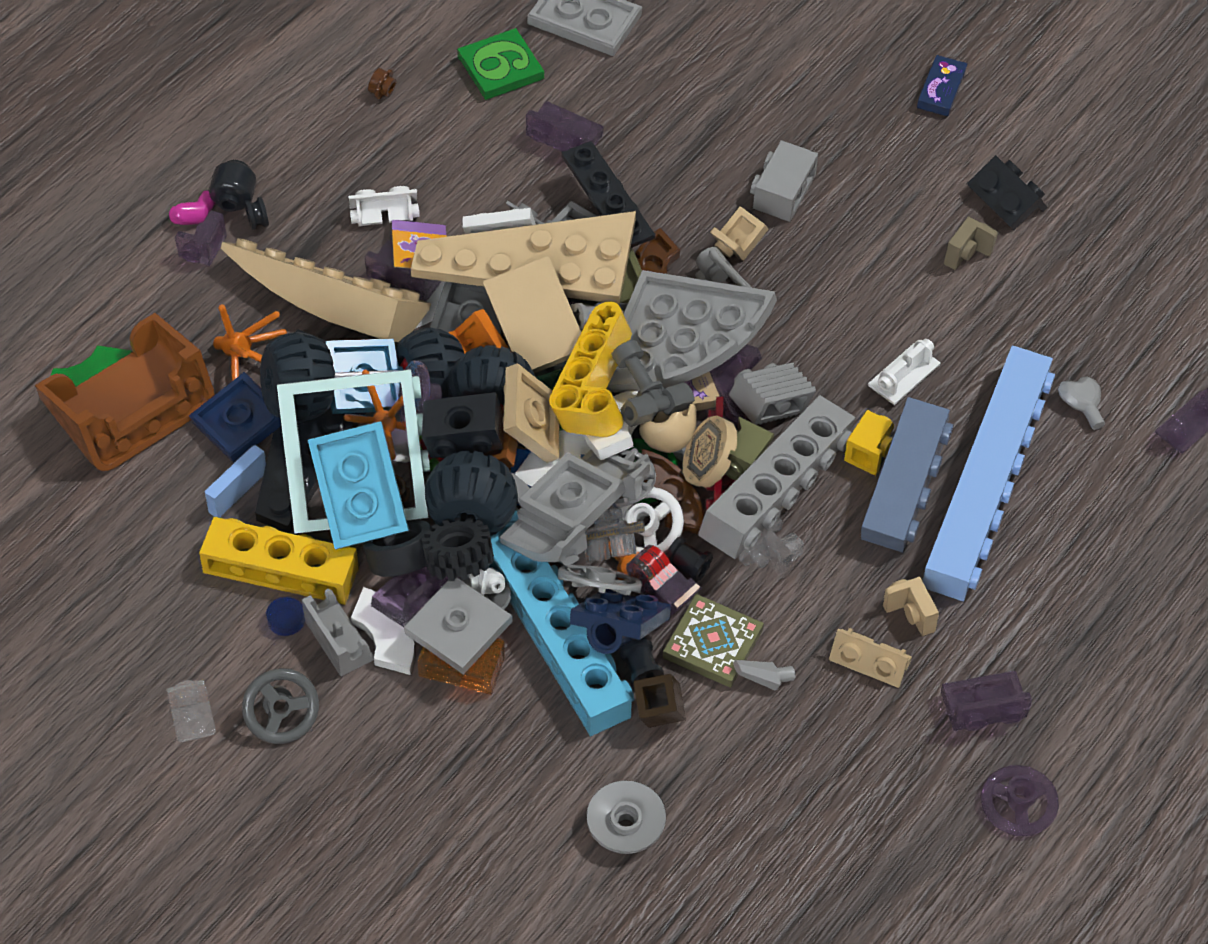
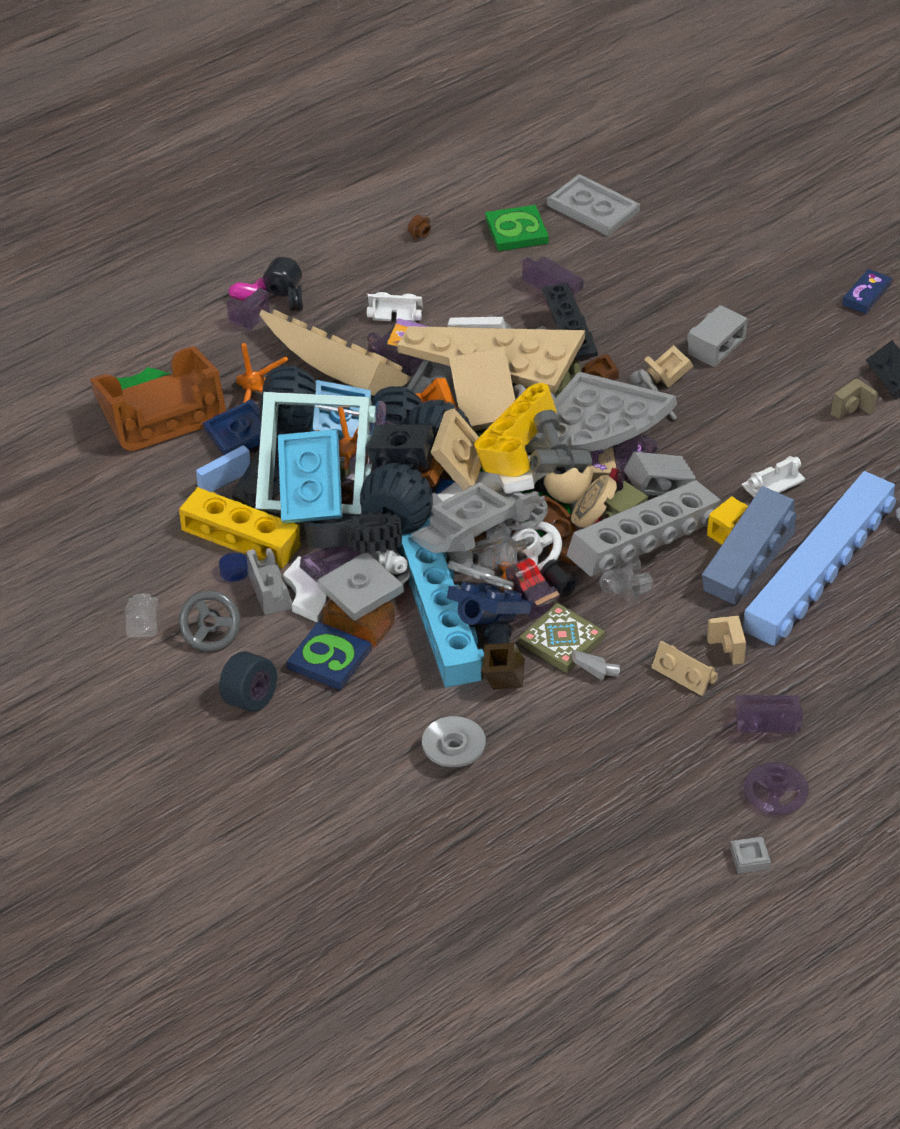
camera: 15 degrees right, 10 degrees down
(353, 784) = (248, 681): none -> black wheel
(438, 721) = (329, 655): none -> dark blue tile
(1014, 899) = (750, 855): none -> light grey tile

